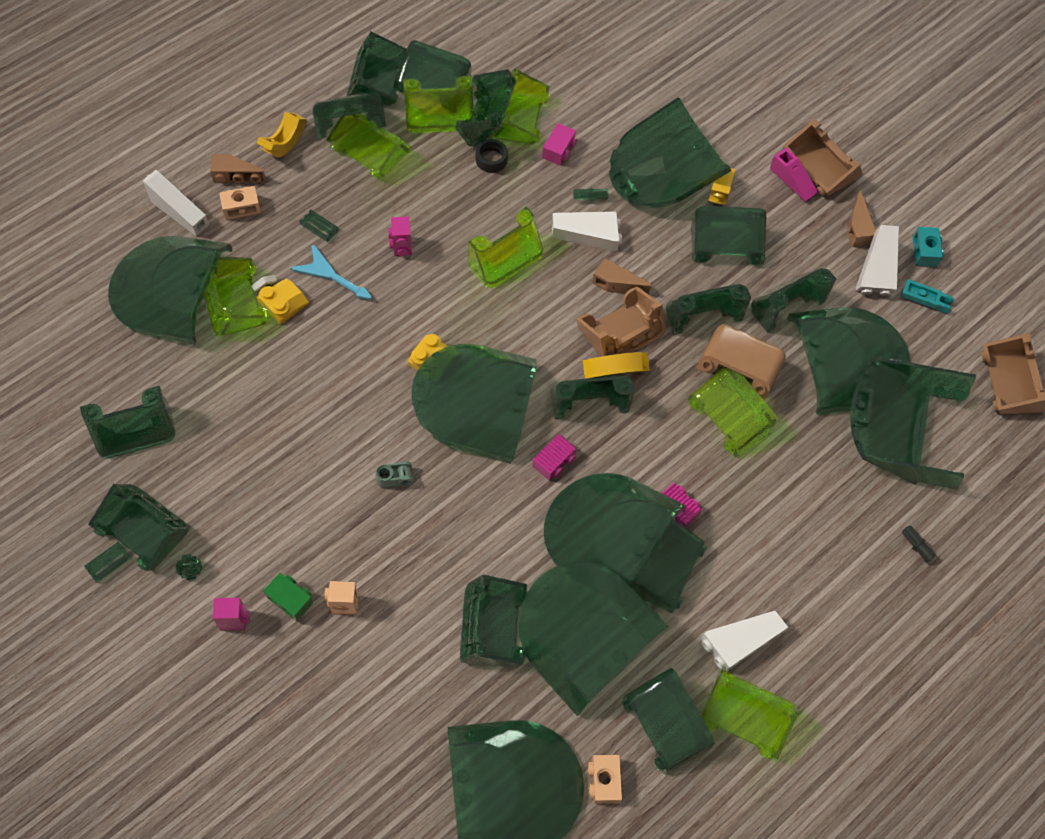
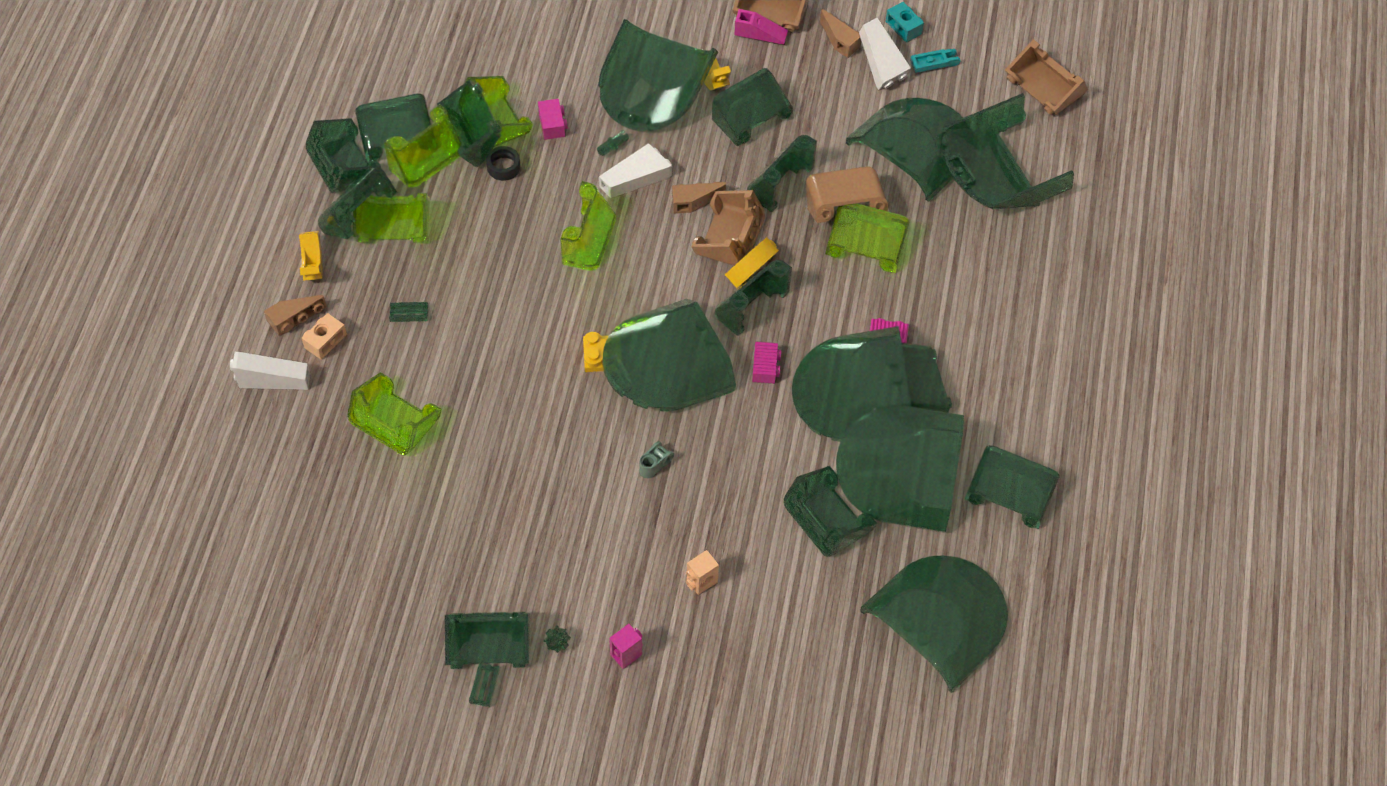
camera: 35 degrees left, 5 degrees down
(132, 427) = (409, 572): clear green windscreen -> none
(163, 284) = (326, 443): clear green windscreen -> none
(257, 286) = (406, 387): white tile -> none
(282, 300) = (435, 388): yellow slope -> none
(288, 596) = (657, 603): green brick -> none
(322, 269) = (444, 344): medium azure piece -> none
(400, 236) = (492, 273): dark pink brick -> none
(609, 766) = (1001, 549): light nougat brick -> none
(741, 639) = (1012, 398): white slope -> none
(749, 713) = (1064, 442): clear neon green windscreen -> none
(810, 286) = (831, 131): clear green windscreen -> none
(918, 543) = (1076, 245): pearl dark grey axle -> none

